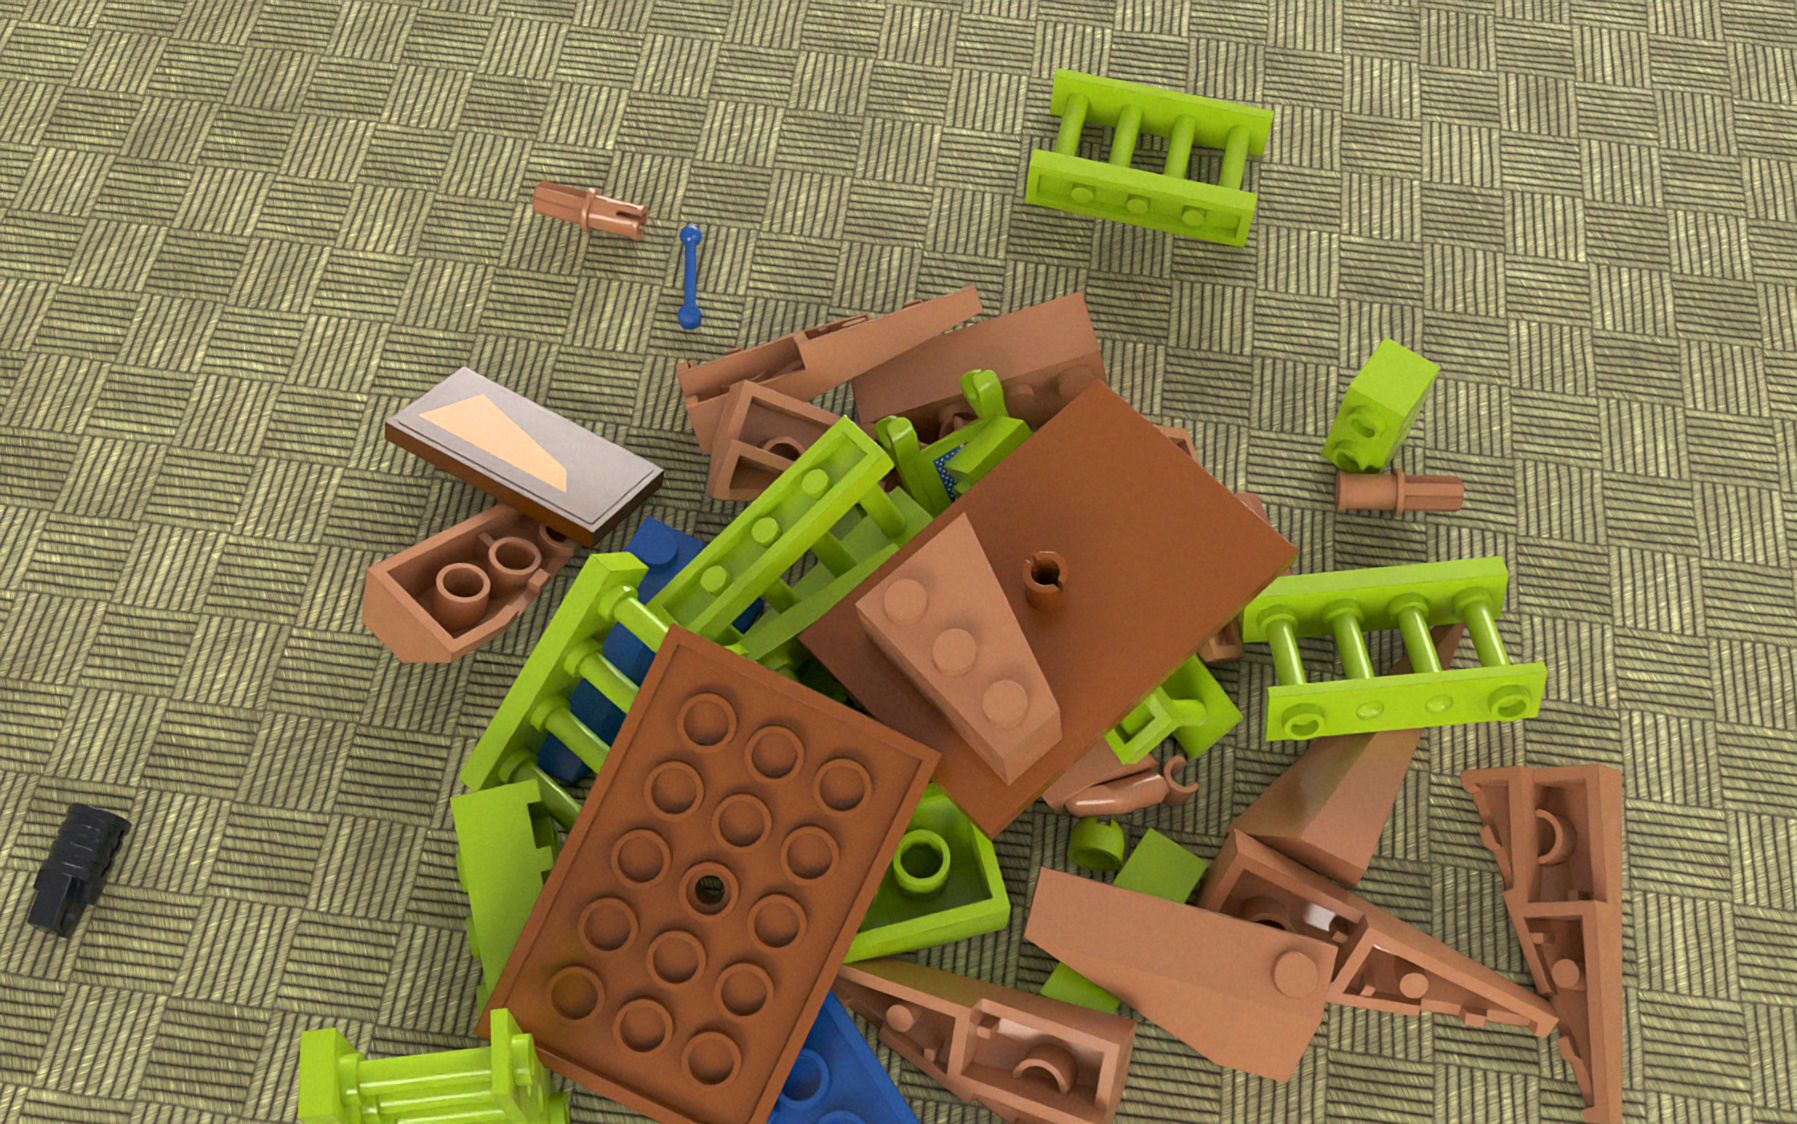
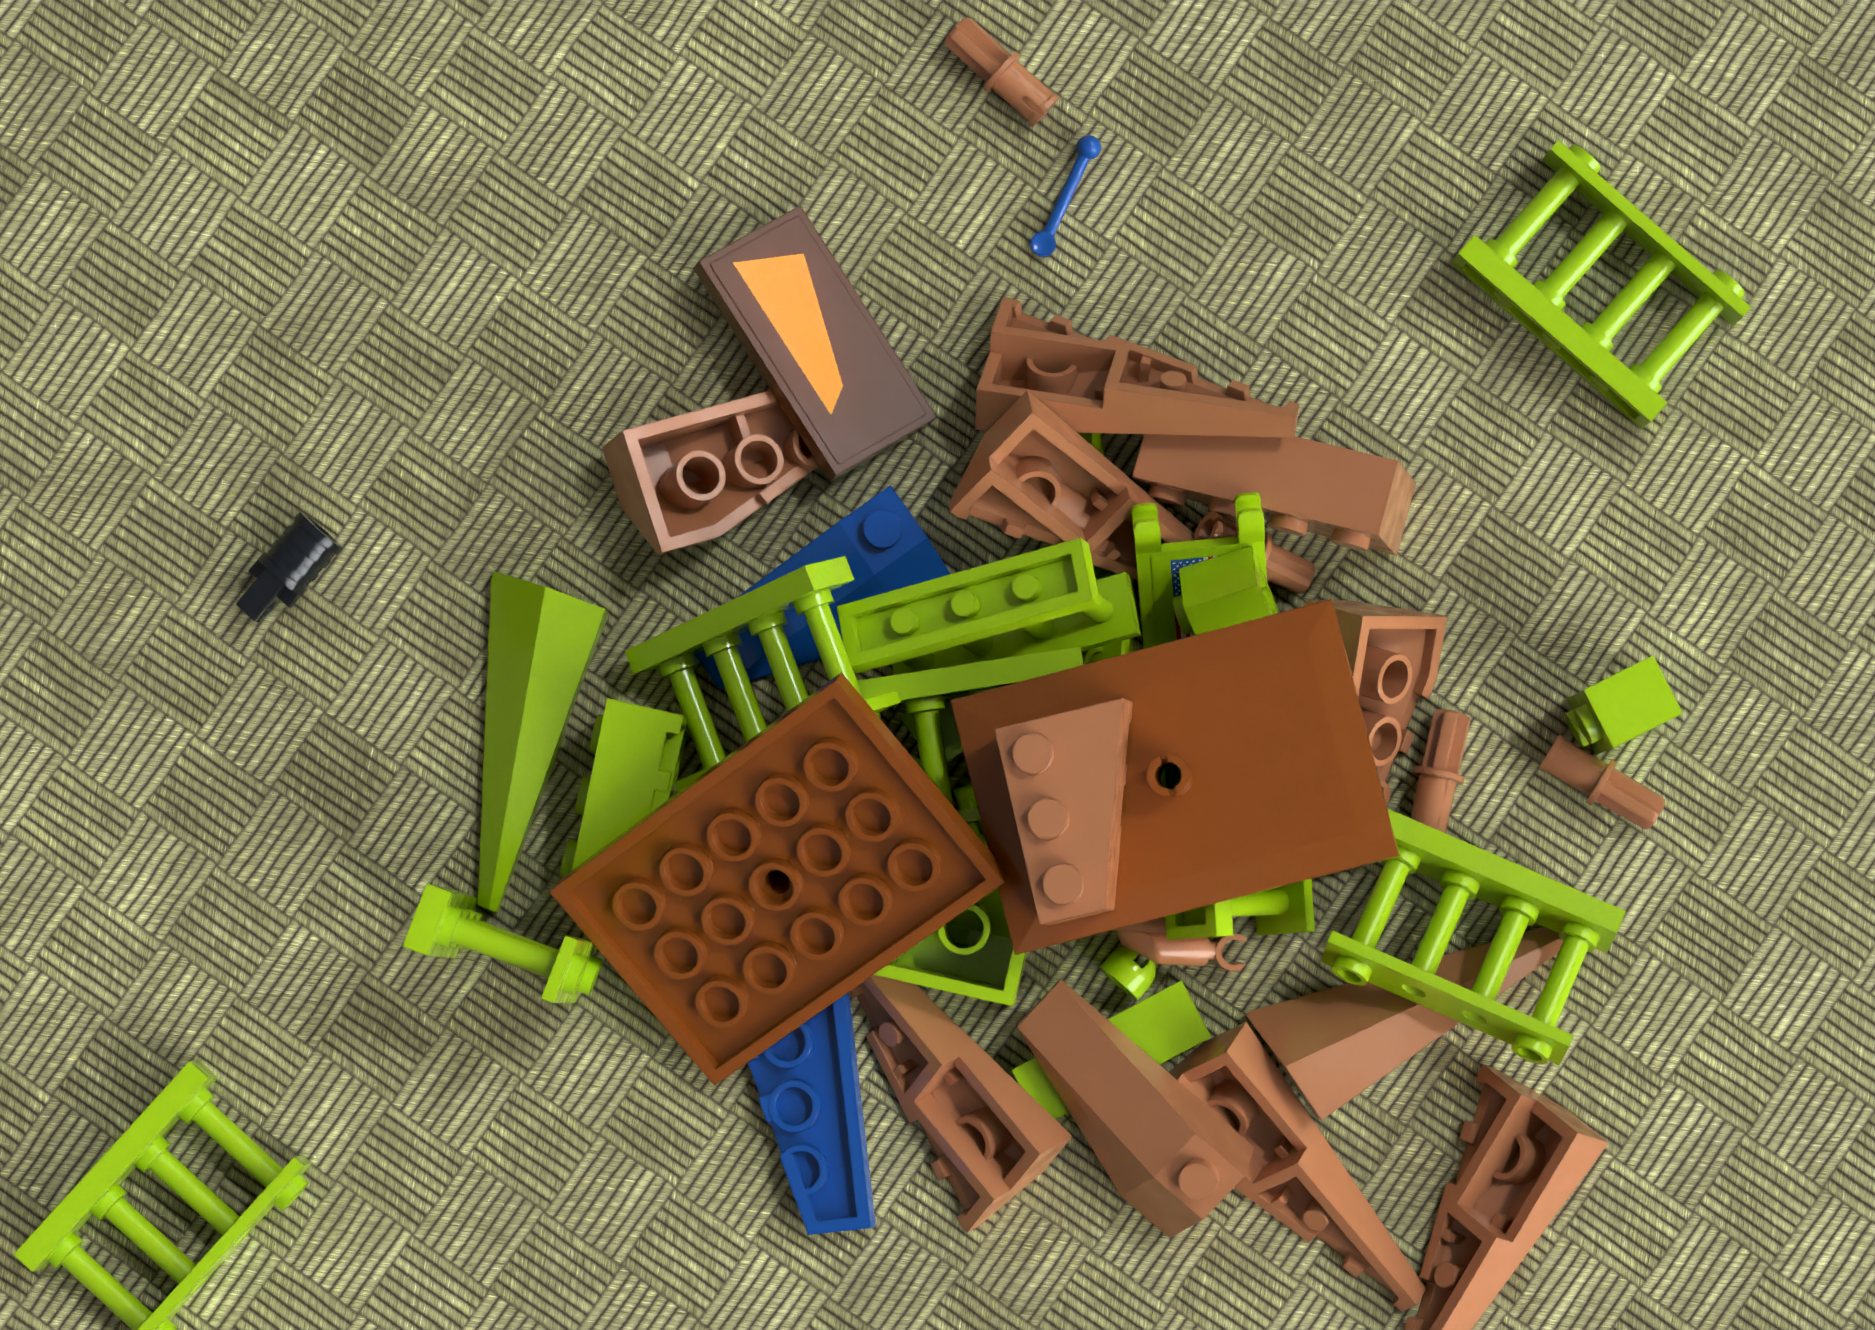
camera: 30 degrees right, 25 degrees up
(375, 841) = (534, 674): none -> lime wedge

